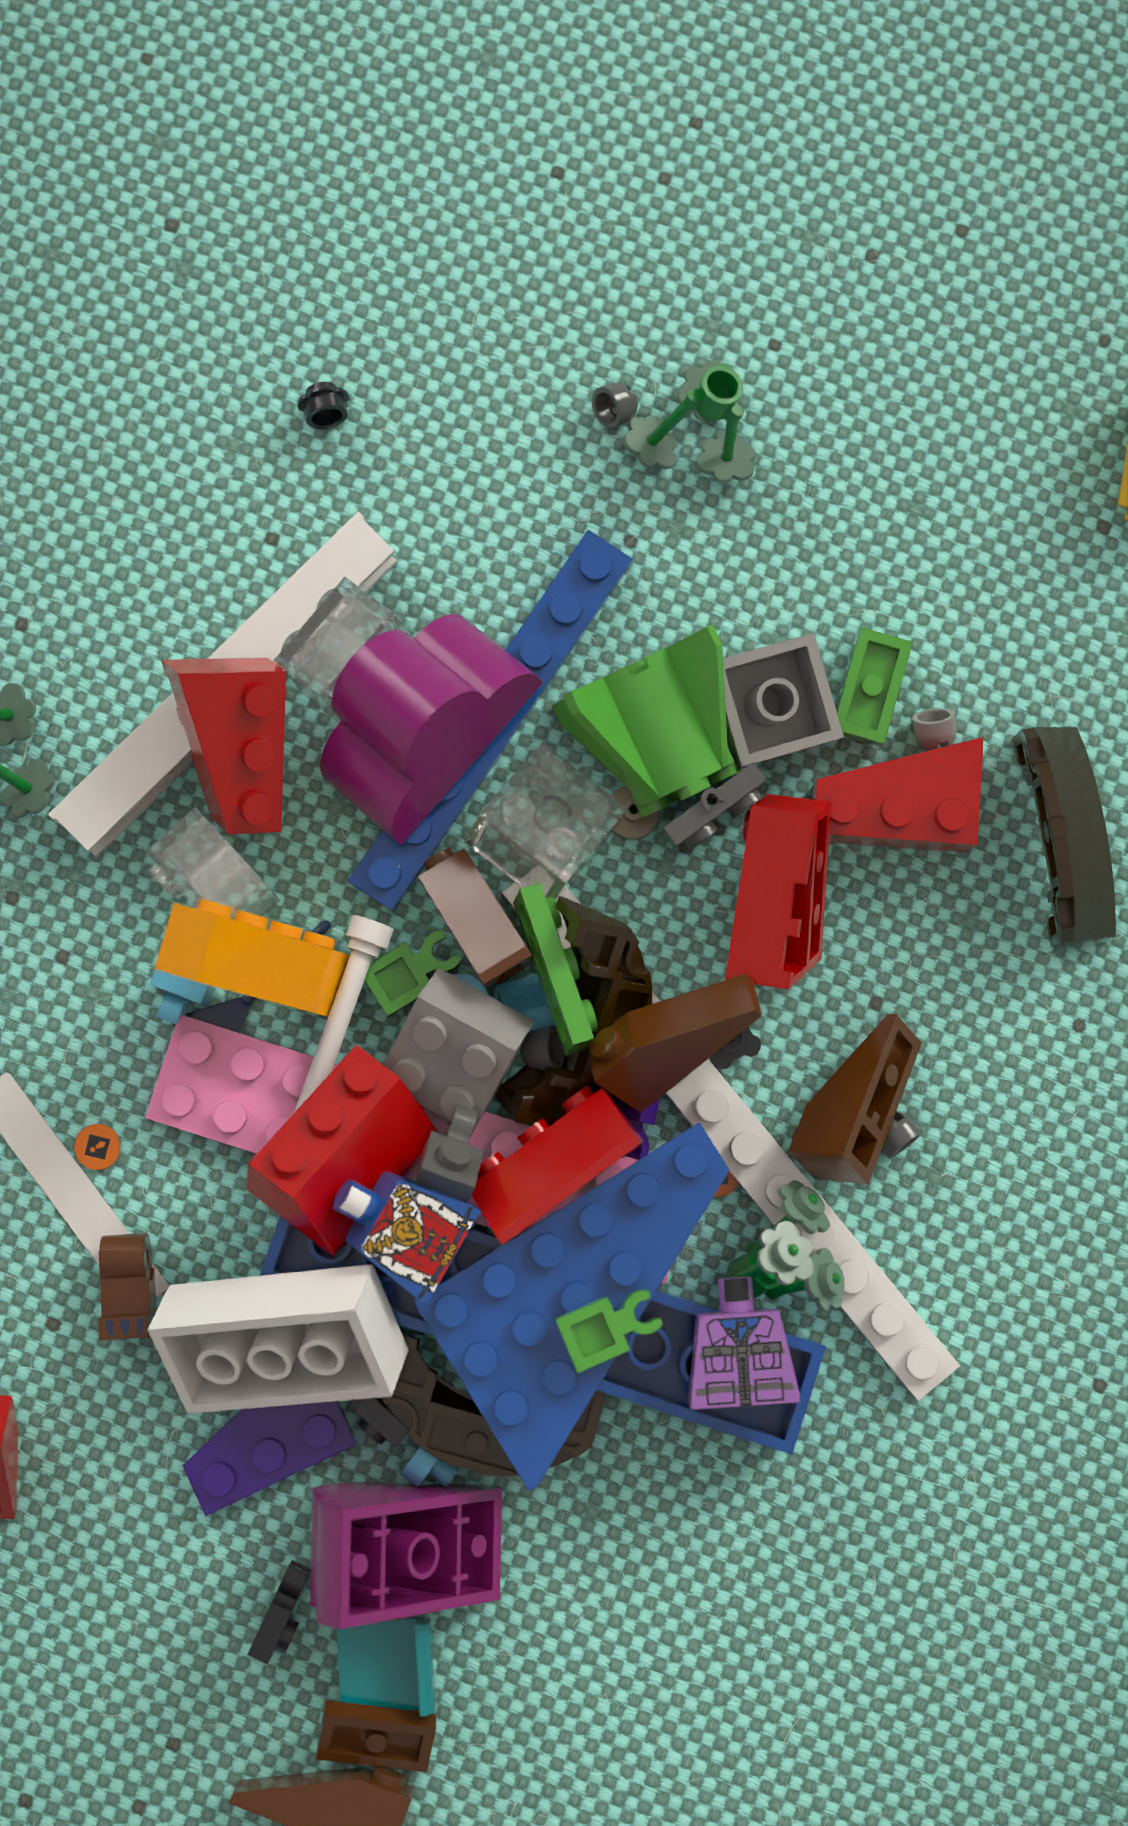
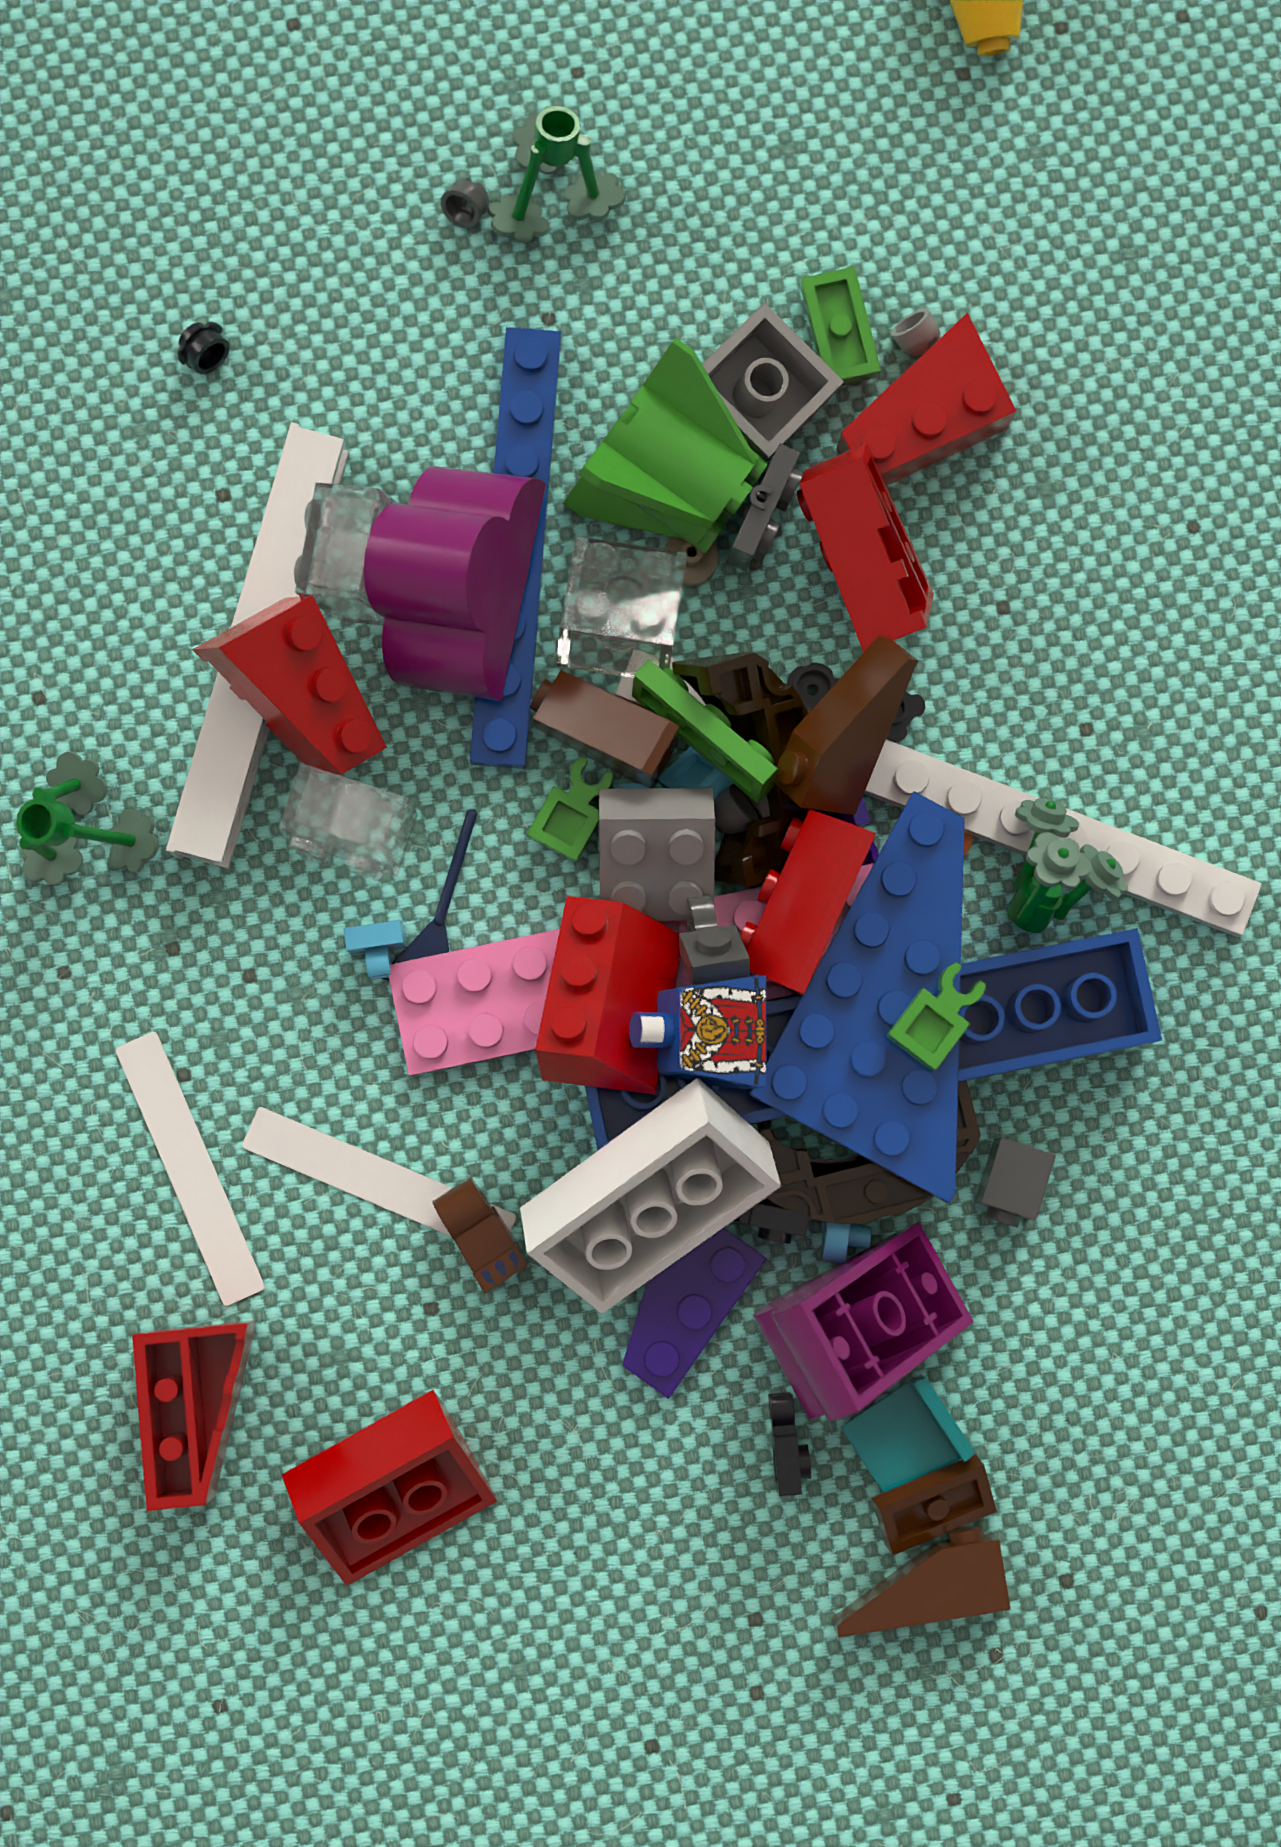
camera: 30 degrees left, 0 degrees up
(97, 1146) = (379, 1127): orange sticker -> none
(250, 959) = (431, 867): light orange brick -> none
(365, 941) = (519, 803): white piece -> none
(601, 1500) = (1014, 1181): none -> dark grey brick
(669, 968) = (813, 674): none -> black plate
(740, 1353) = (1067, 973): torso -> none
(854, 1109) = (1040, 707): reddish brown slope -> none
(901, 1134) = (1087, 710): dark grey hinge -> none
(1071, 834) = (1094, 358): dark brown windscreen -> none

